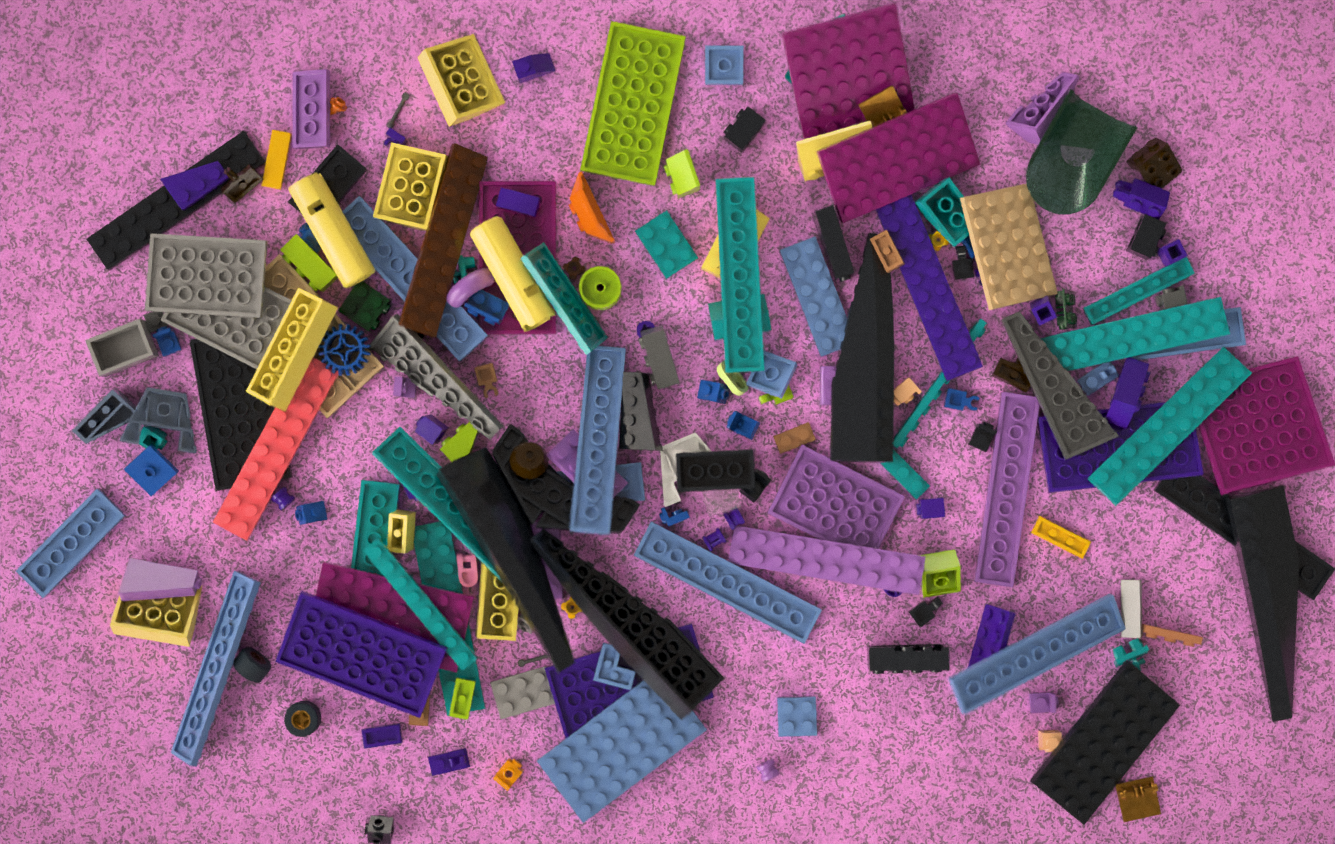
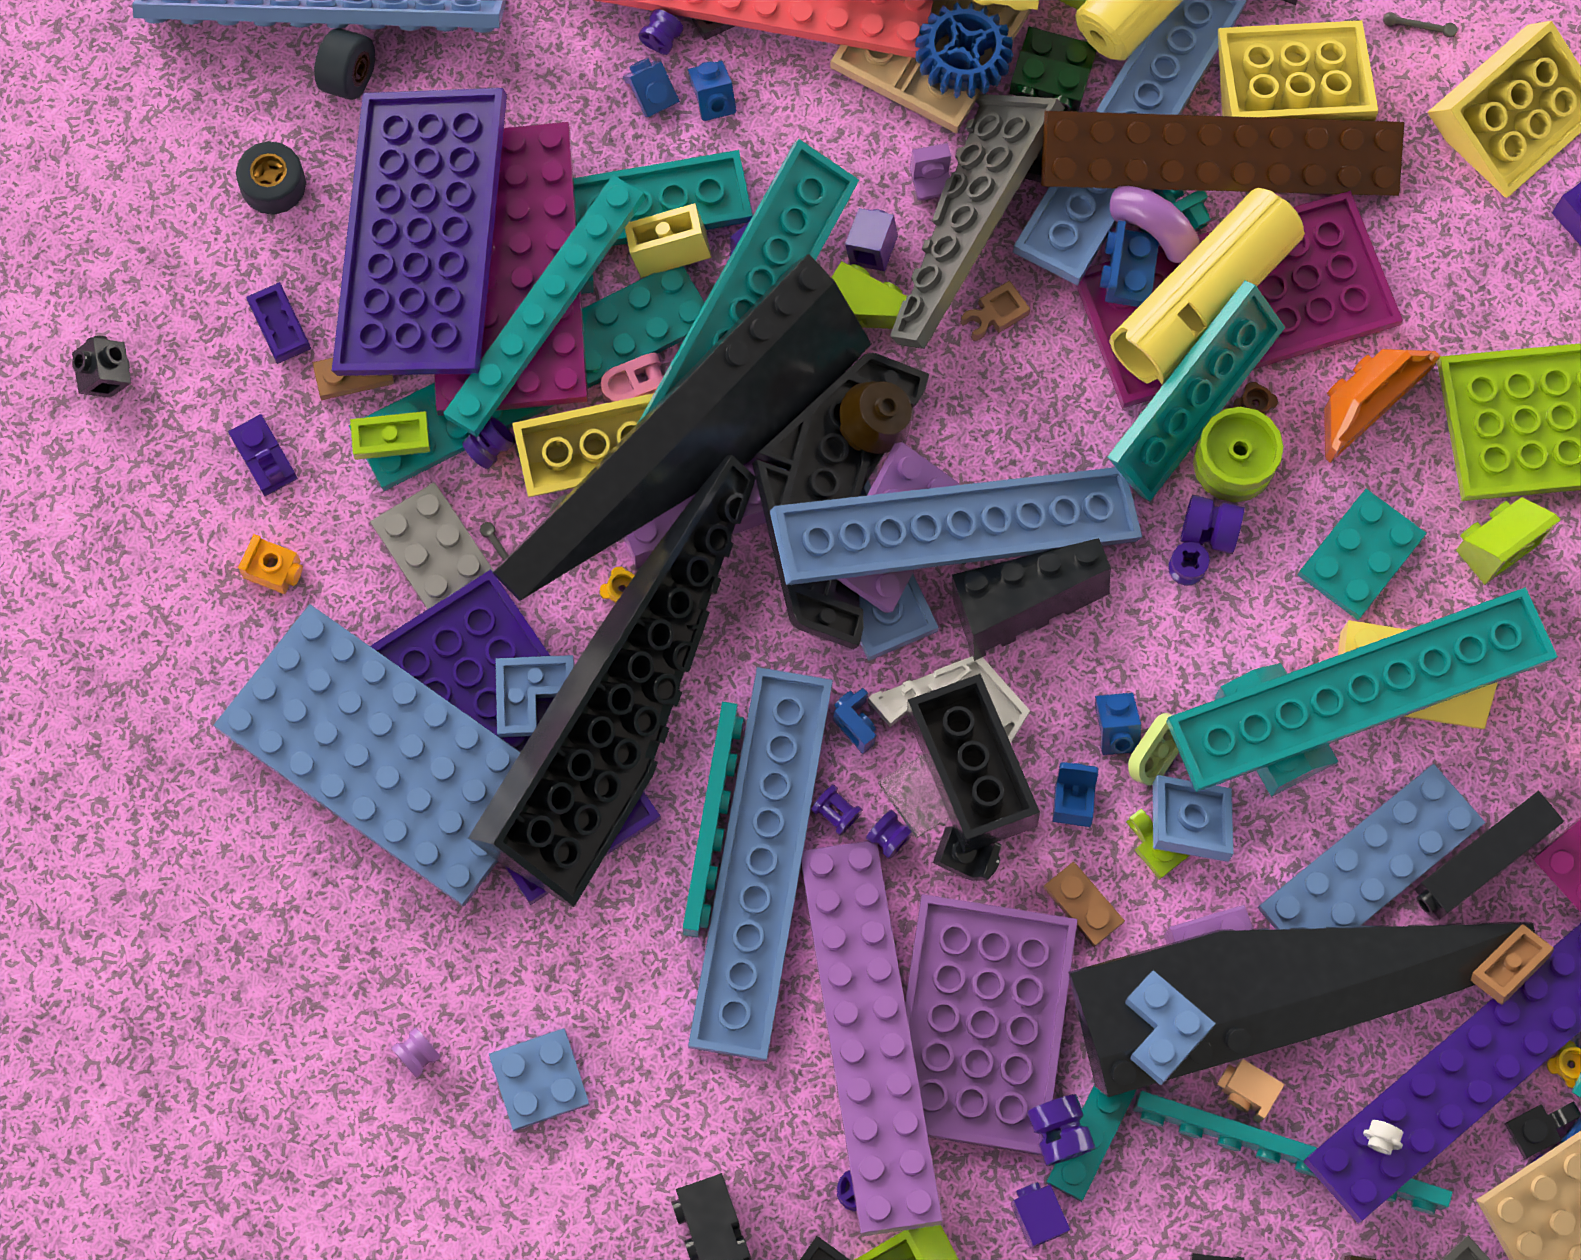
camera: 70 degrees right, 15 degrees down
(322, 482) = (712, 90): none -> blue bracket
(394, 137) = (1372, 28): dark purple tile -> none
(479, 648) = (489, 443): none -> dark purple wheel
(518, 202) = (1340, 263): dark purple slope -> none
(631, 312) = (1212, 524): none -> dark purple wheel
(658, 357) = (1148, 597): dark grey brick -> none
(708, 602) = (710, 836): none -> teal plate
(874, 421) = (1176, 1026): none -> medium blue plate
(898, 487) = (1060, 1115): none -> dark purple wheel
(950, 344) = (1383, 1137): none -> white plate
(957, 400) = (1273, 1201): blue plate -> none

